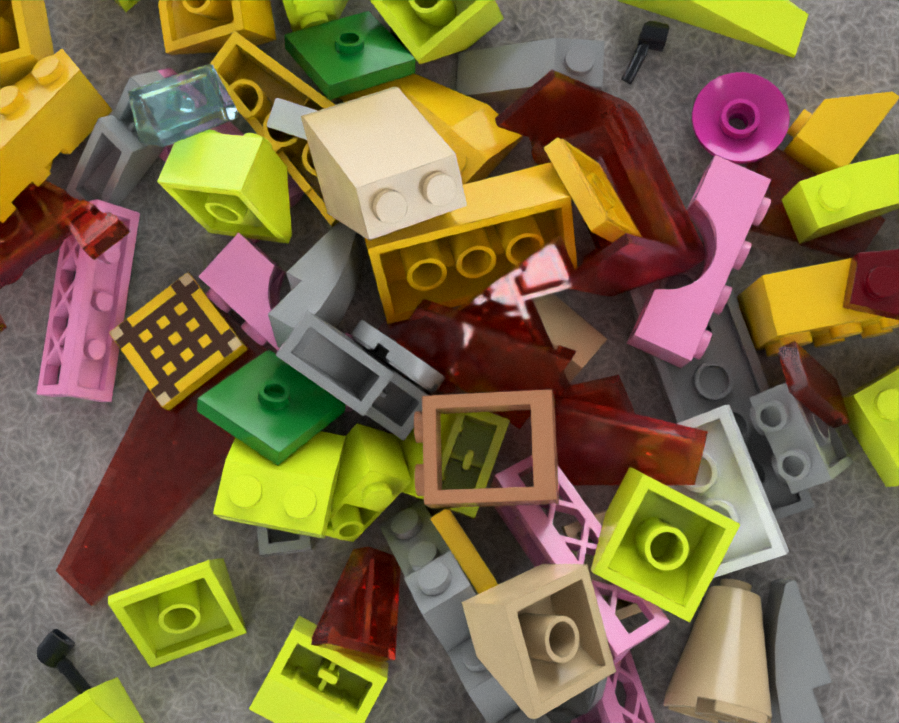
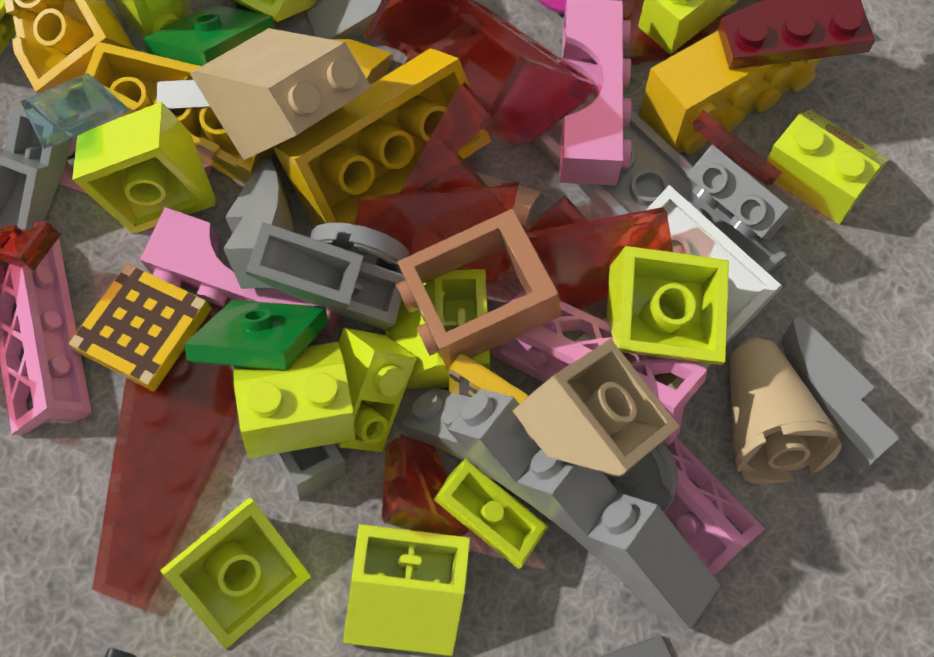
camera: 25 degrees left, 15 degrees down
(417, 654) = (491, 513): none -> neon yellow slope
(591, 191) = (471, 56): yellow tile -> none

